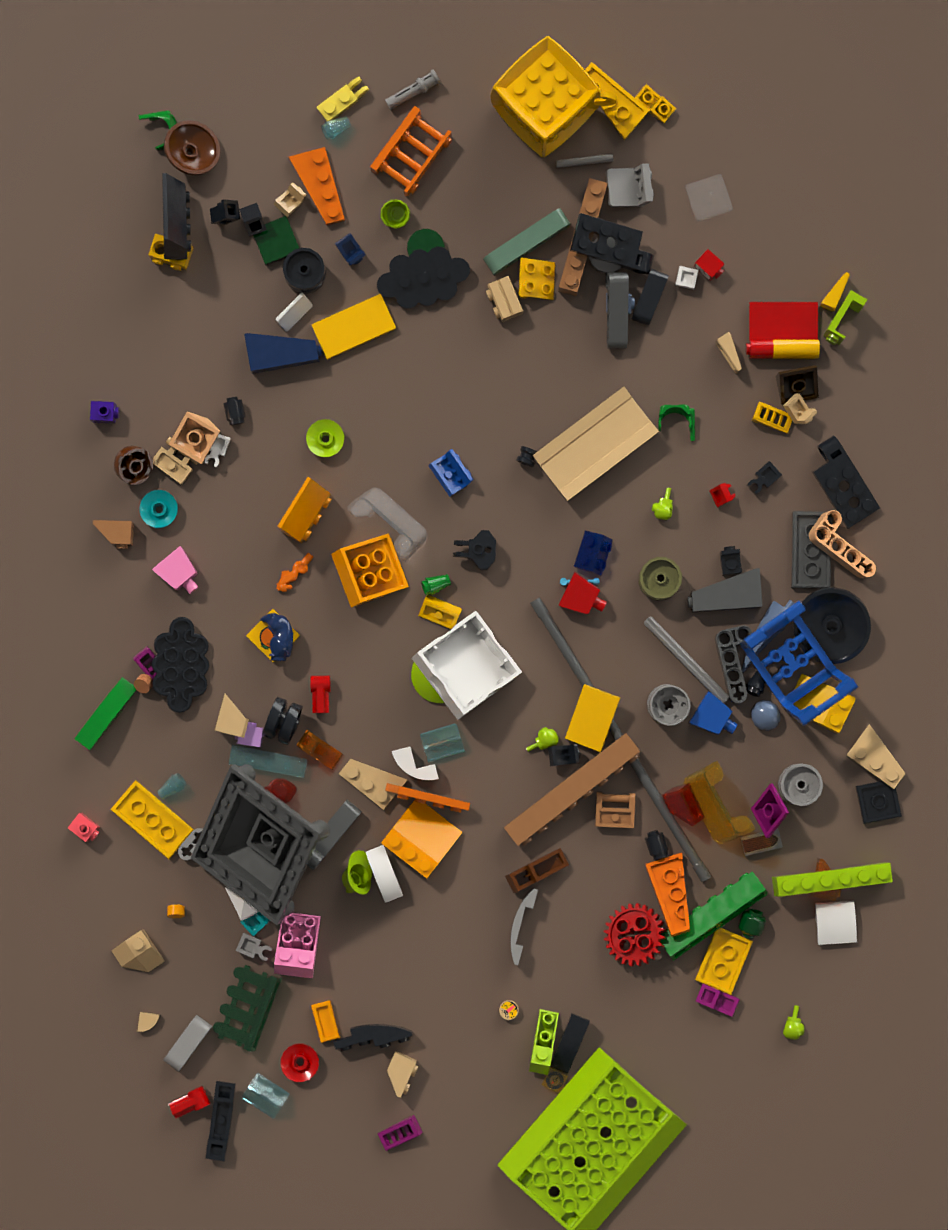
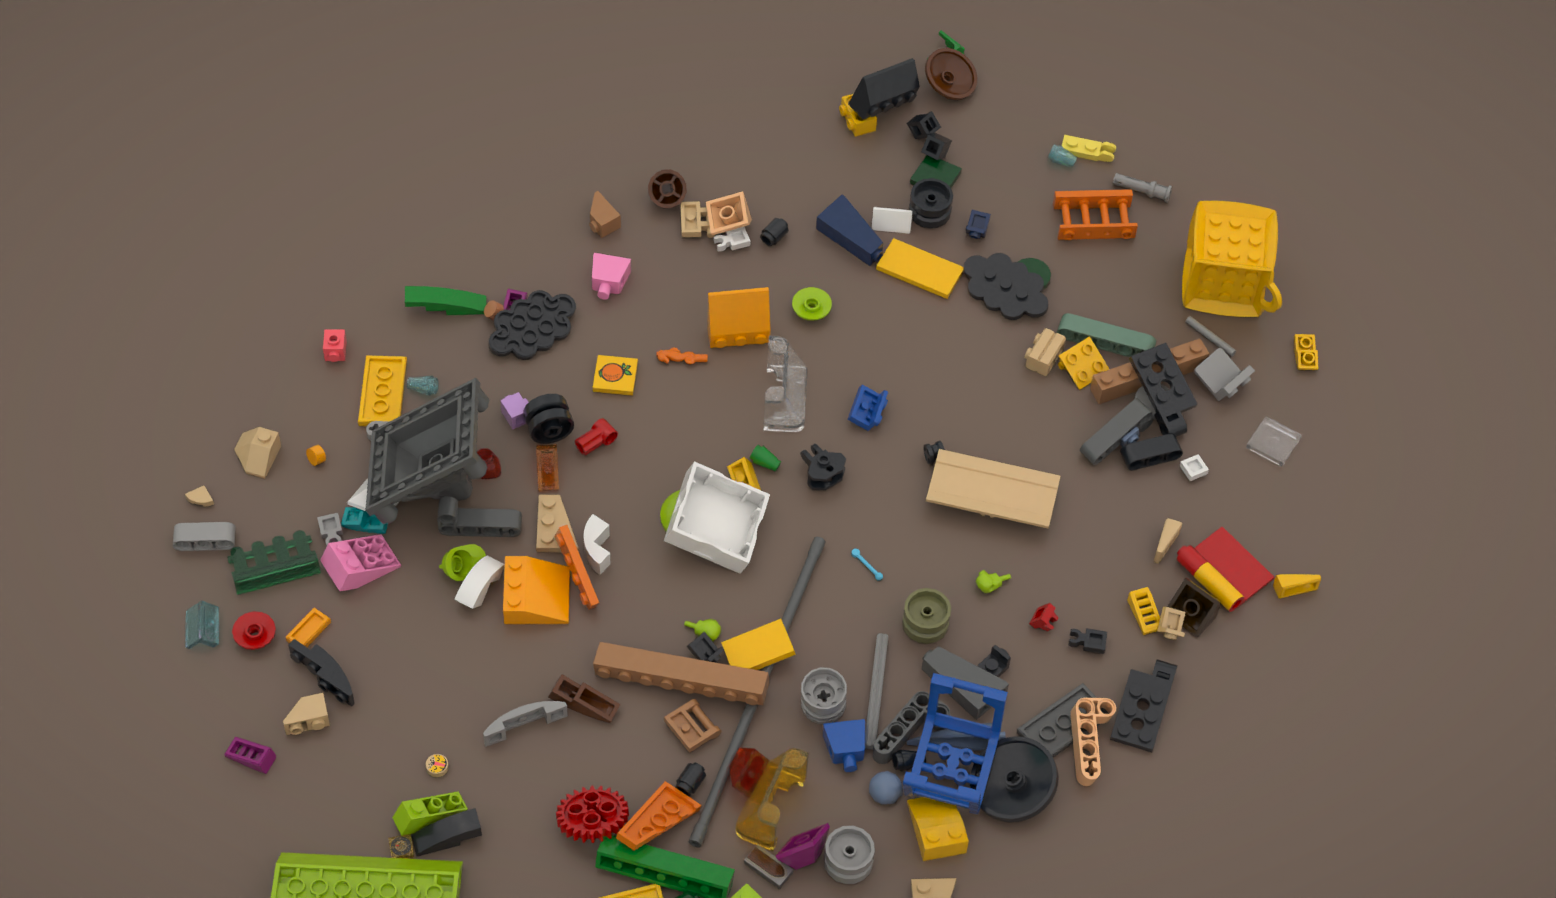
camera: 45 degrees right, 30 degrees down
(103, 412) = (690, 149): dark purple brick -> none
(151, 502) = (647, 231): teal dish -> none
(192, 1101) = (154, 574): red piece -> none
(220, 1121) = (154, 607): black slope -> none
(231, 719) = (515, 379): tan slope -> none
(268, 761) = (505, 440): clear light blue tile -> none
(282, 642) = (614, 376): dark blue animal -> none
(290, 200) = (975, 163): tan bracket -> none
(318, 180) = (1009, 174): orange wing -> none
(369, 570) = (731, 403): light orange slope -> none
(395, 213) = (1036, 233): lime hair -> none
(442, 742) = (632, 553): clear light blue panel -> none
(581, 595) = (855, 568): red torso -> none
(593, 552) = (901, 556): clear blue bracket -> none
(627, 110) = (1278, 328): yellow wing -> none
(688, 413) = (1084, 538): green helmet -> none
(709, 265) = (1221, 475): red brick -> none
(852, 301) = (1298, 596): lime window -> none

